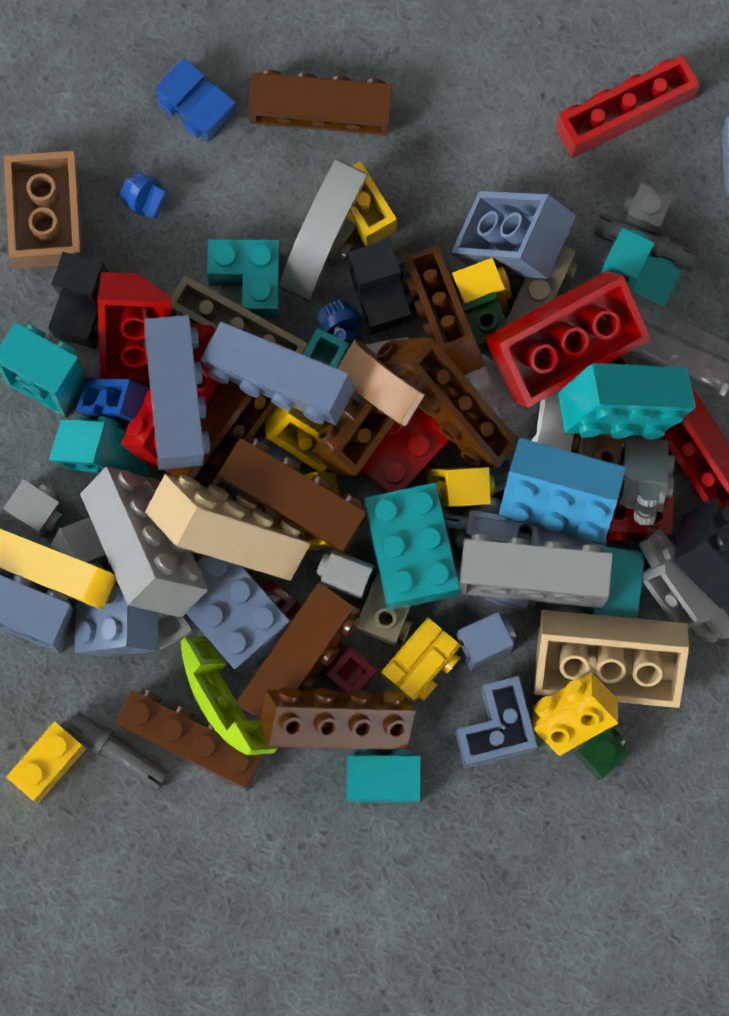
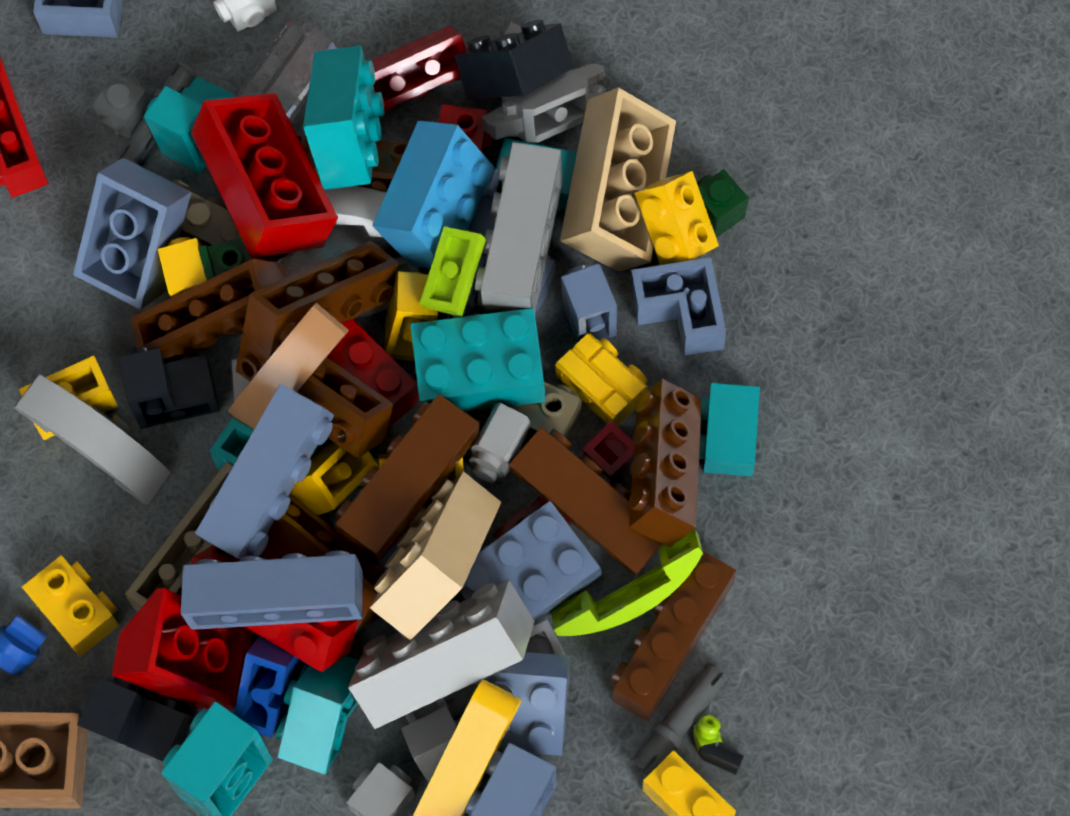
camera: 80 degrees left, 10 degrees down
(96, 781) = (711, 747): none -> arm
(181, 235) = (71, 605): none -> yellow brick
(248, 264) = (124, 523): teal brick -> none
(340, 320) = (199, 437): blue piece -> none
(484, 513) = (452, 271): none -> lime plate
(646, 477) = (435, 106): light grey hinge -> none

